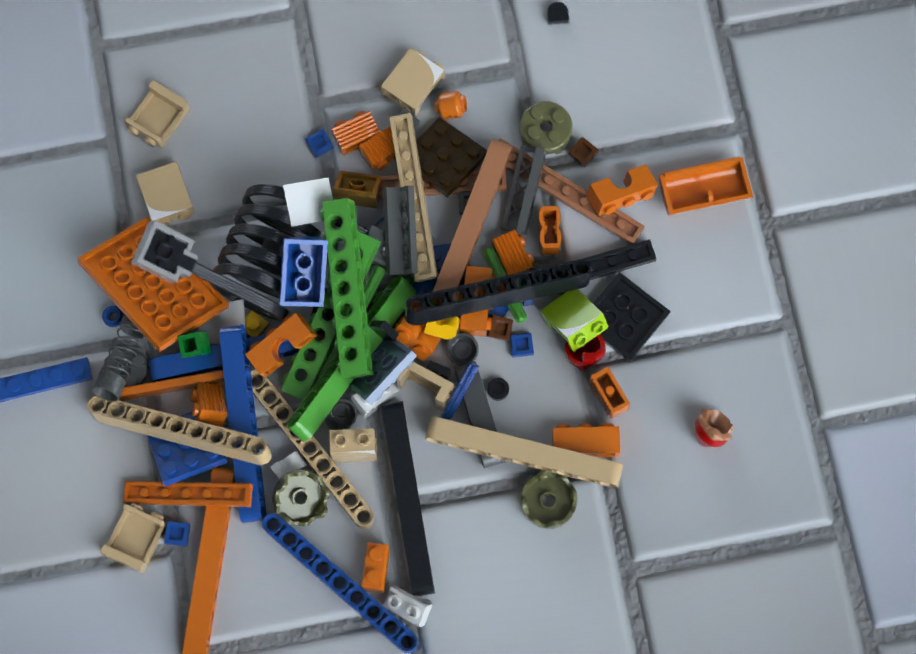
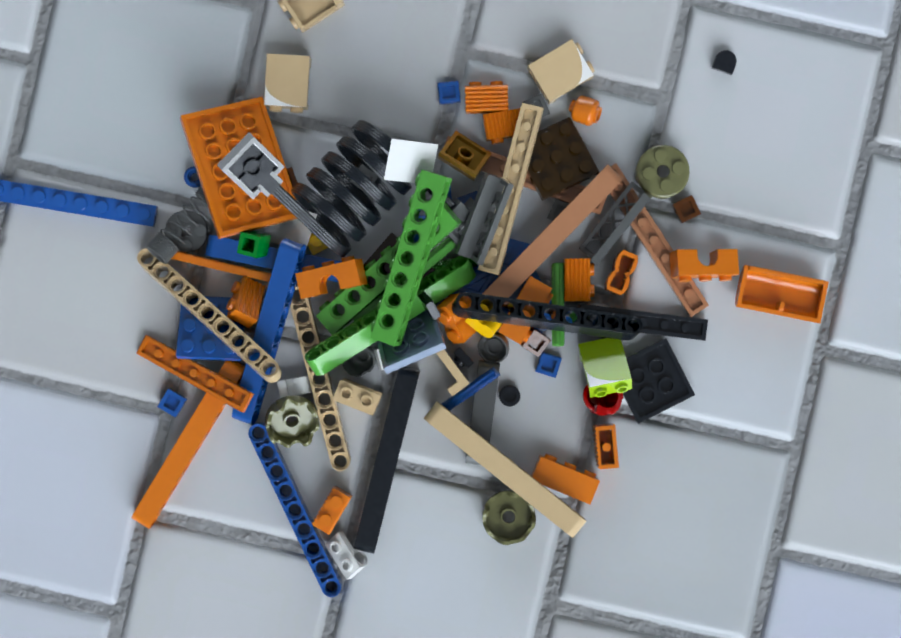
camera: 25 degrees right, 15 degrees up
(135, 537) = (133, 390): tan panel -> none
(303, 271) = (377, 226): blue slope -> none
(712, 428) = (682, 518): nougat hair -> none

